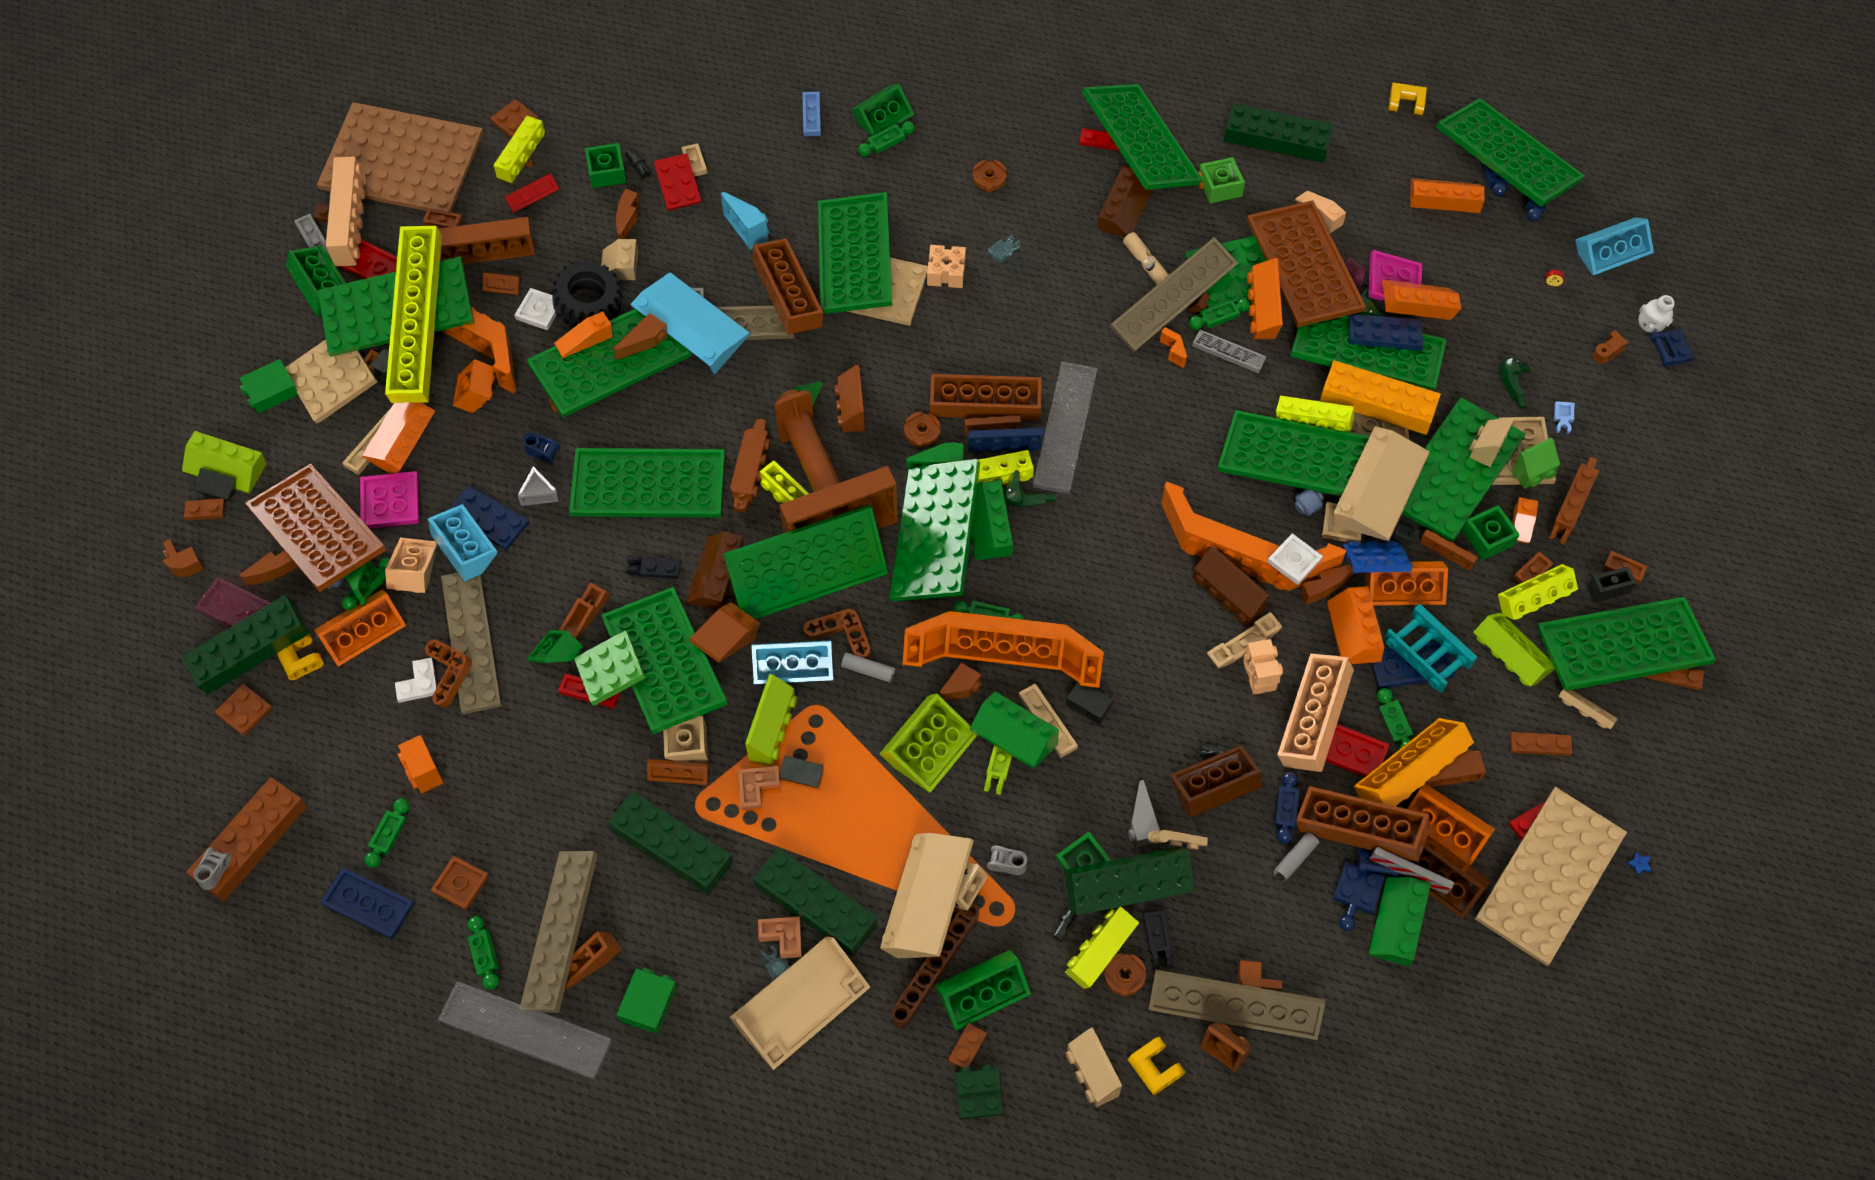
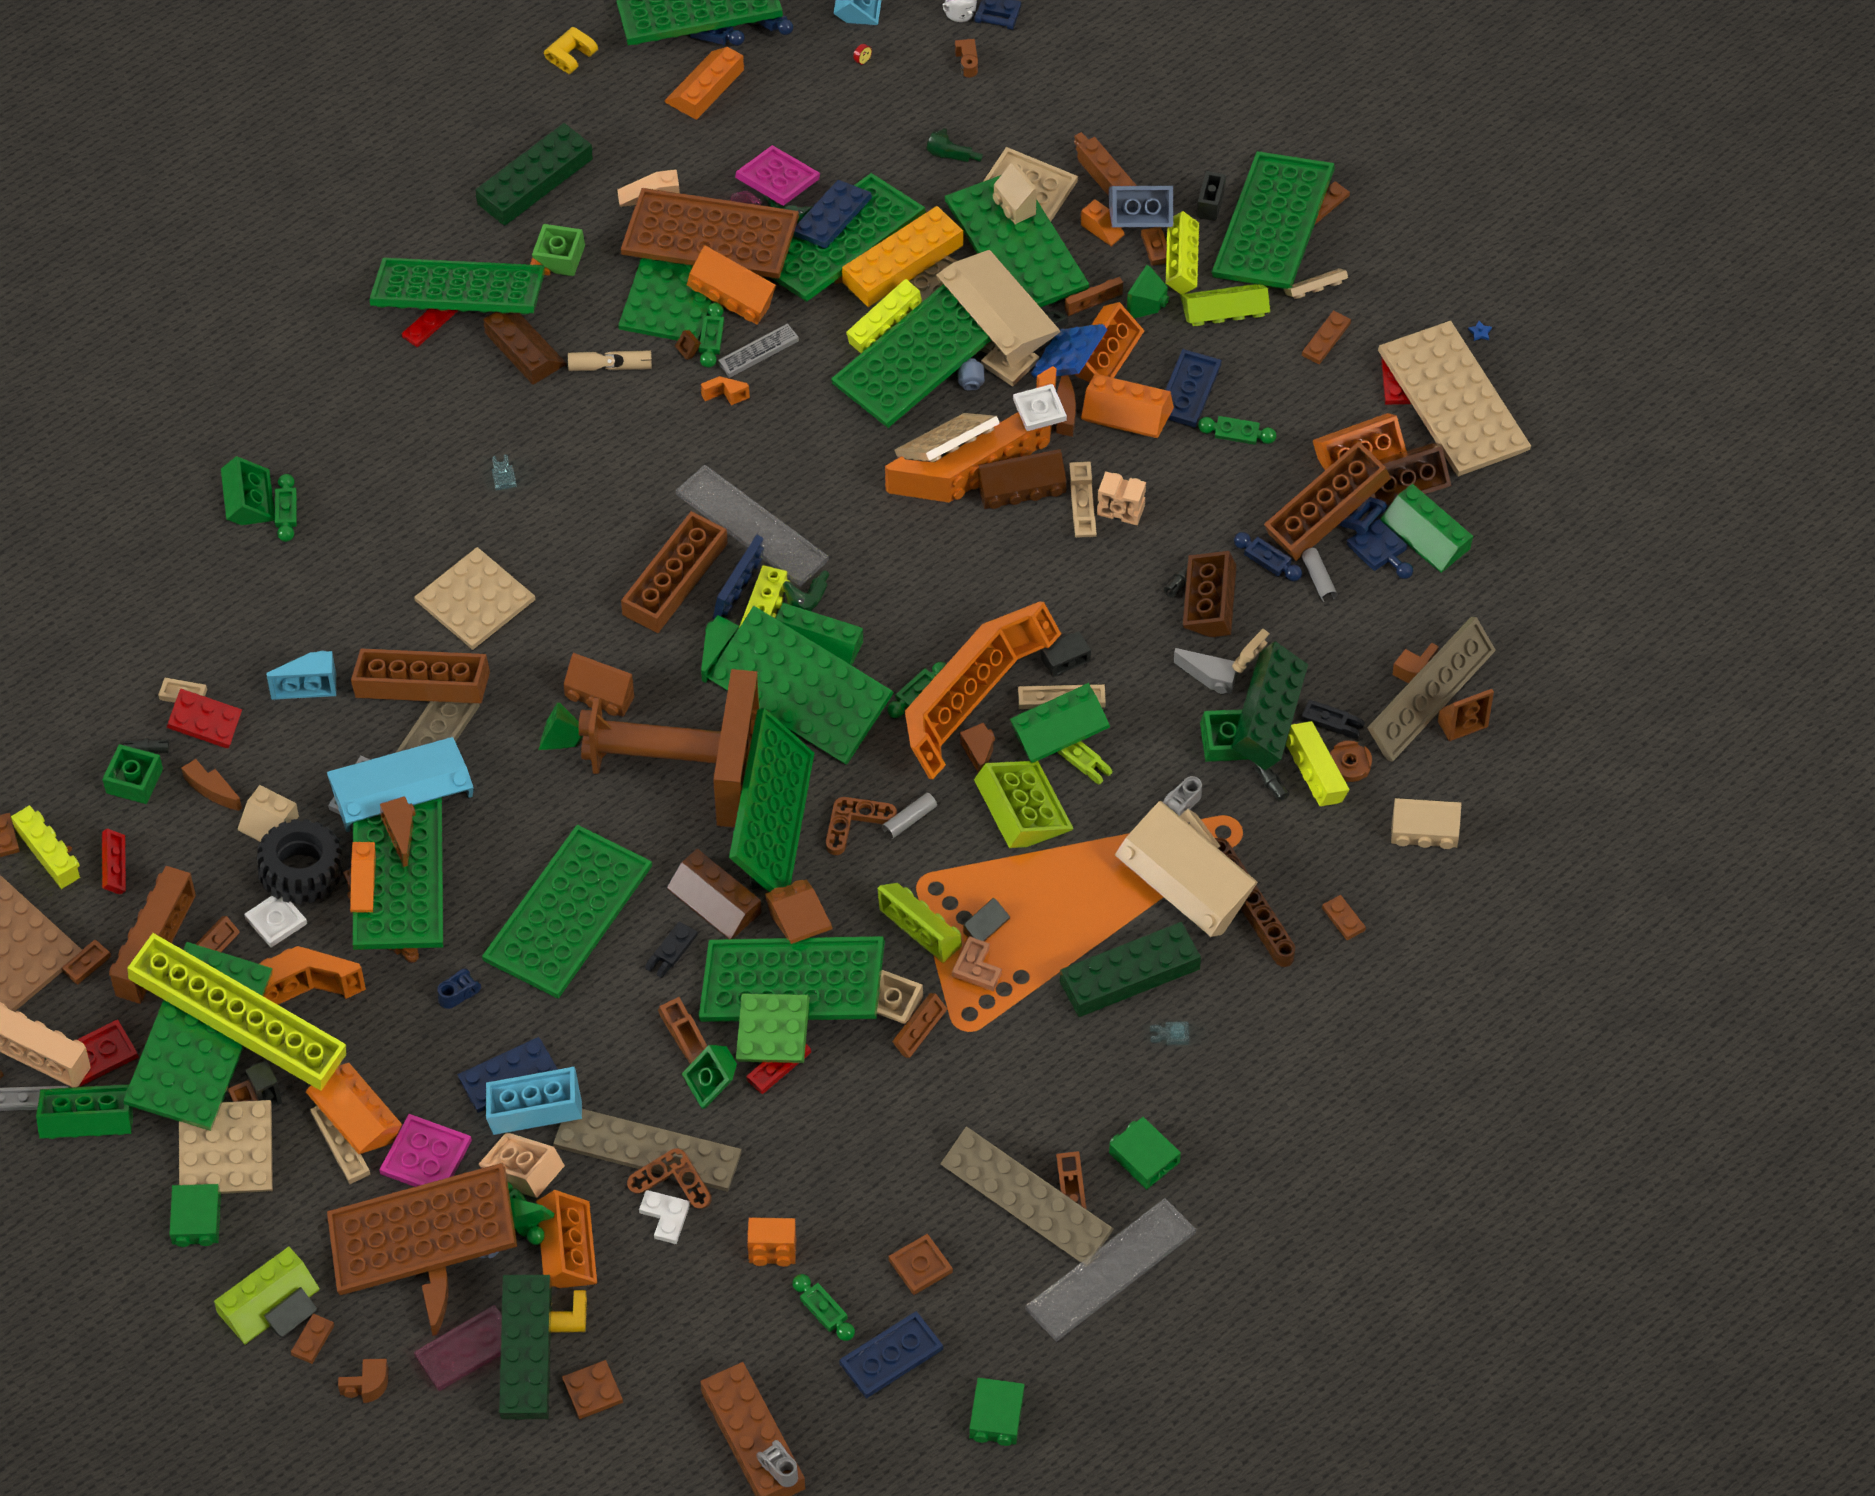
camera: 60 degrees left, 5 degrees down
(348, 1008) = (996, 1411): none -> green brick
(474, 386) = (343, 1013): orange brick -> none
(483, 952) = (1008, 1273): green plate -> none
(537, 490) = (512, 1009): light grey slope -> none
(670, 843) = (993, 1062): dark green brick -> none
(749, 465) = (611, 812): dark orange hinge -> none
(780, 483) = (673, 788): neon yellow brick -> none
(785, 930) = (1144, 1007): nougat plate -> none
(793, 661) = (869, 869): medium azure slope -> none
(800, 1002) = (1220, 1027): tan slope -> none
(811, 114) = (201, 558): medium blue plate -> none
(854, 253) = (417, 599): green plate -> none
(918, 438) = (674, 655): dark orange plate -> none
(946, 266) = (491, 530): light nougat brick -> none
(979, 1092) = (1392, 927): dark green plate -> none
(983, 989) = (1297, 876): green slope -> none
(989, 183) = (404, 450): dark orange plate -> none
(992, 423) = (707, 583): dark orange plate -> none
(1148, 1071) = (1451, 788): yellow connector -> none
(1173, 294) = (668, 357): dark tan plate -> none
(1228, 511) = (947, 437): none -> tan plate
(1315, 712) = (1194, 481): light nougat brick -> none
(1355, 751) = (1246, 477): red plate -> none
(1411, 870) = (1390, 491): light grey tile -> none
(1415, 763) = (1291, 433): light orange brick -> none
(1420, 300) = (815, 166): orange slope -> none
(1443, 636) = (1186, 345): teal fence -> none
(1464, 768) = (1314, 407): dark orange slope -> none
(1475, 585) = (1147, 294): none -> green slope
(1490, 532) = (1100, 253): green brick -> none
(1537, 464) = (1059, 178): bright green slope -> none
(1553, 536) = (1141, 206): none -> sand blue slope
(1563, 414) = (1013, 130): light blue plate -> none
(1617, 561) = (1193, 179): dark orange plate -> none

